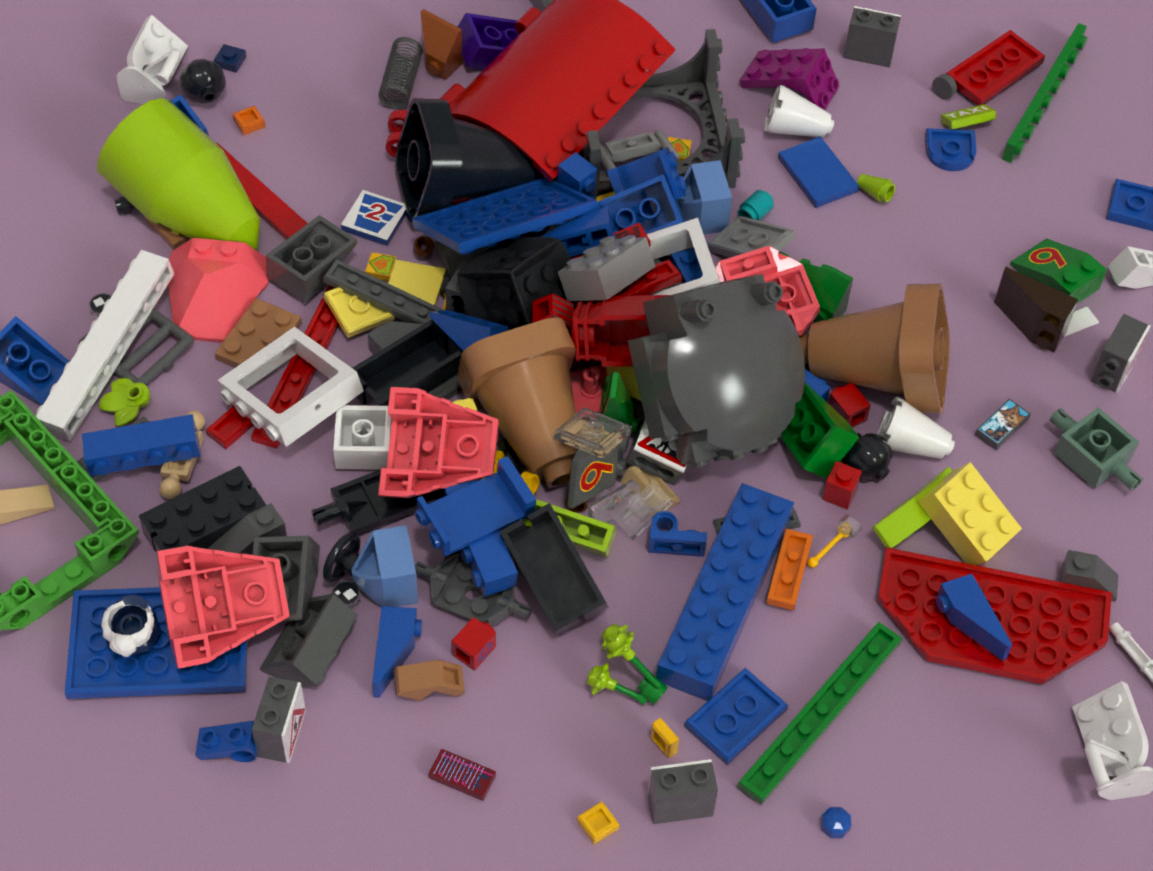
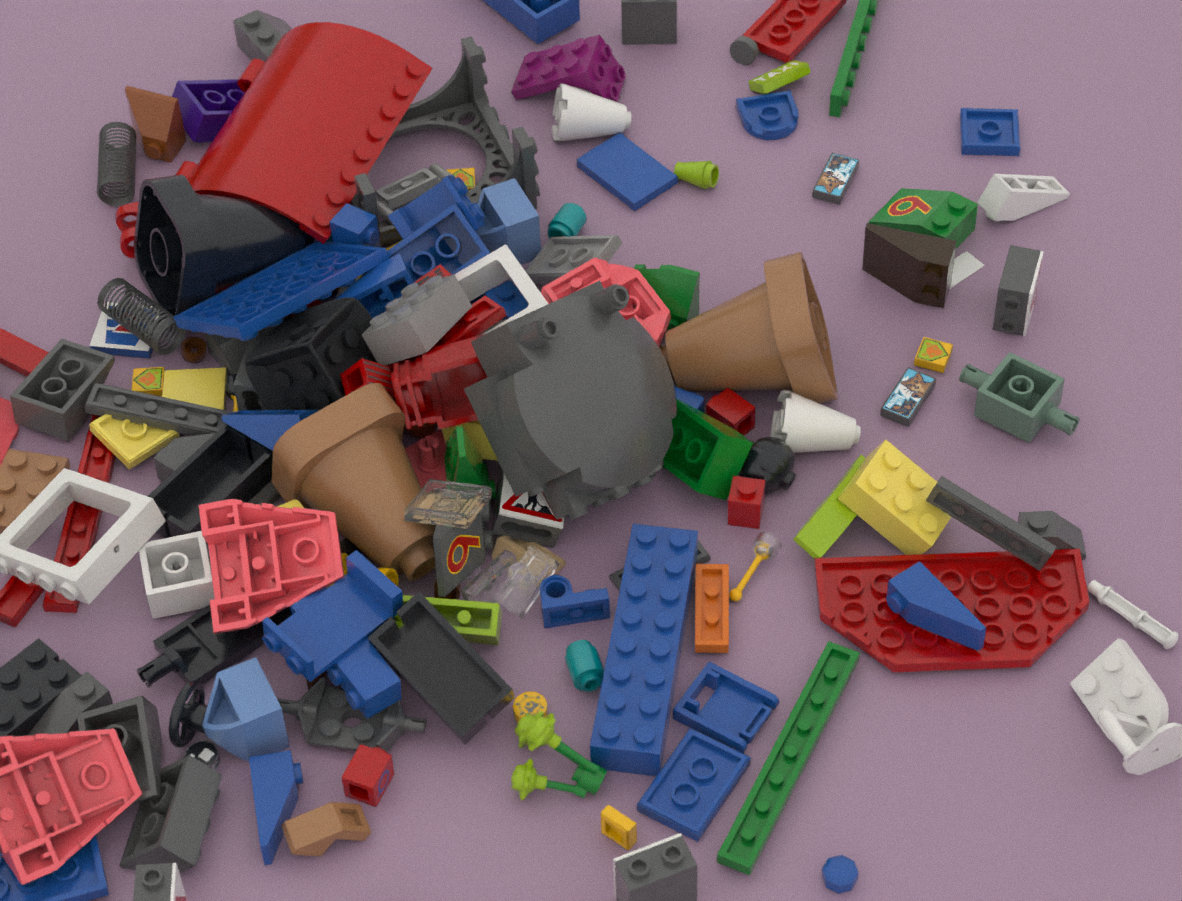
camera: 10 degrees left, 5 degrees down
(401, 223) = (128, 305): none -> dark grey piece
(620, 615) = (530, 703): none -> yellow tile
(672, 593) = (584, 665): none -> teal brick
(783, 662) = (732, 712): none -> blue container
(992, 217) = (835, 178): none -> tile
(1034, 392) = (933, 354): none -> tile
(1040, 554) = (991, 523): none -> dark grey tile

